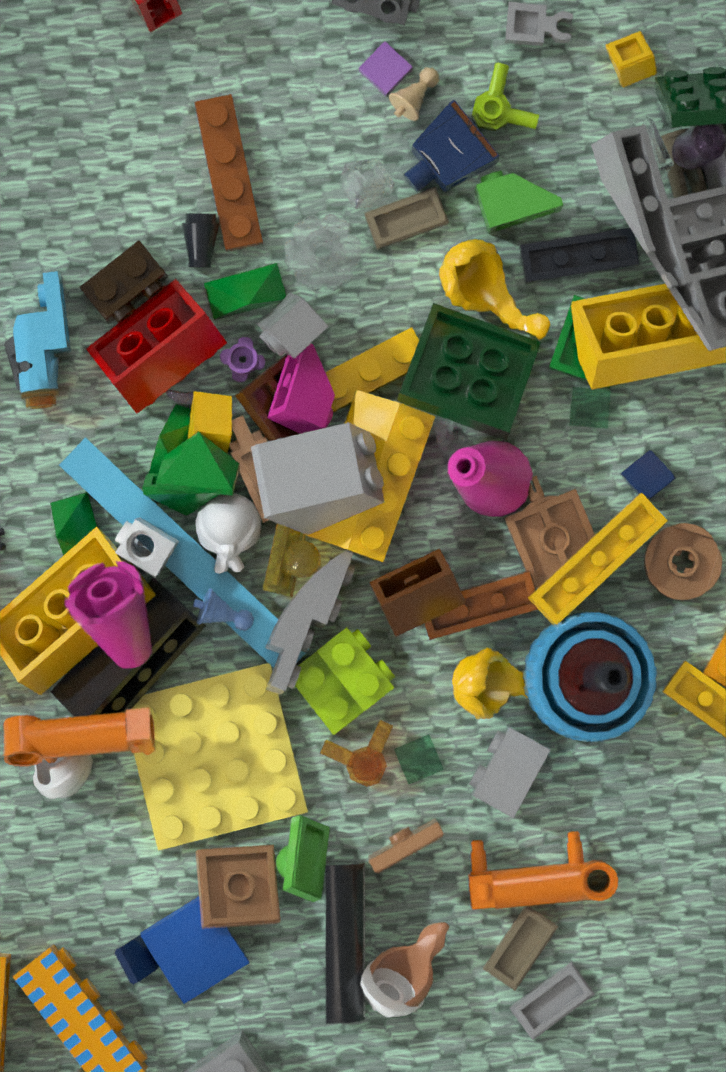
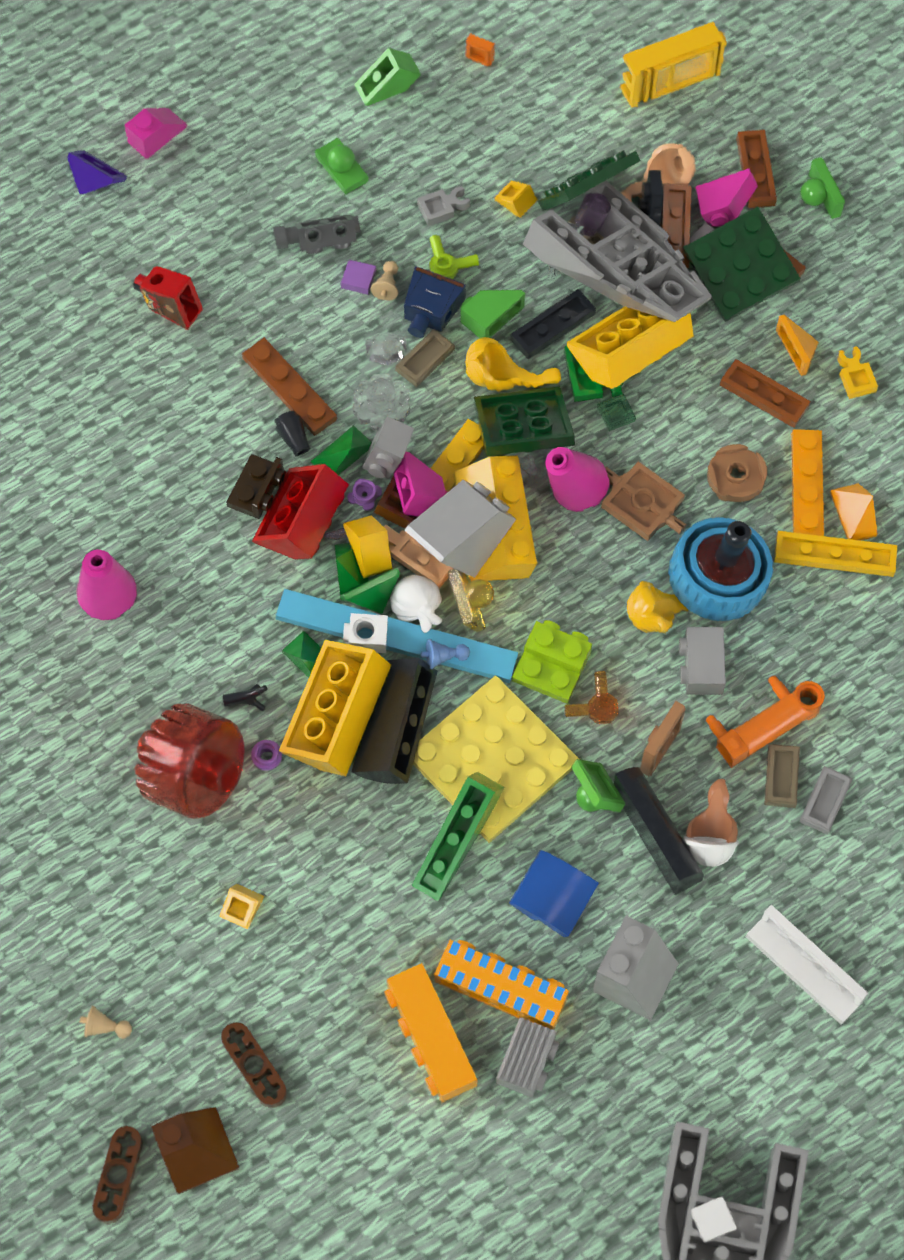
camera: 30 degrees left, 20 degrees down
(32, 739) = (362, 794): orange piece -> none
(36, 341) = (217, 549): medium azure plate -> none
(62, 777) = (388, 812): white hat -> none
(113, 611) = (373, 671): dark pink cone -> none
(124, 831) = (457, 834): none -> green slope
(136, 959) = (515, 924): dark blue slope -> none
(198, 468) = (373, 562): green slope -> none
(237, 886) = (560, 832): medium nougat plate -> none
(312, 606) = (503, 630): light grey slope -> none
(417, 592) = (570, 569): reddish brown slope -> none
(418, 759) = (636, 688): clear green tile -> none
(486, 604) = (618, 564): dark orange plate -> none
(597, 559) = (680, 492): yellow plate -> none
(648, 475) = (681, 434): dark blue slope -> none

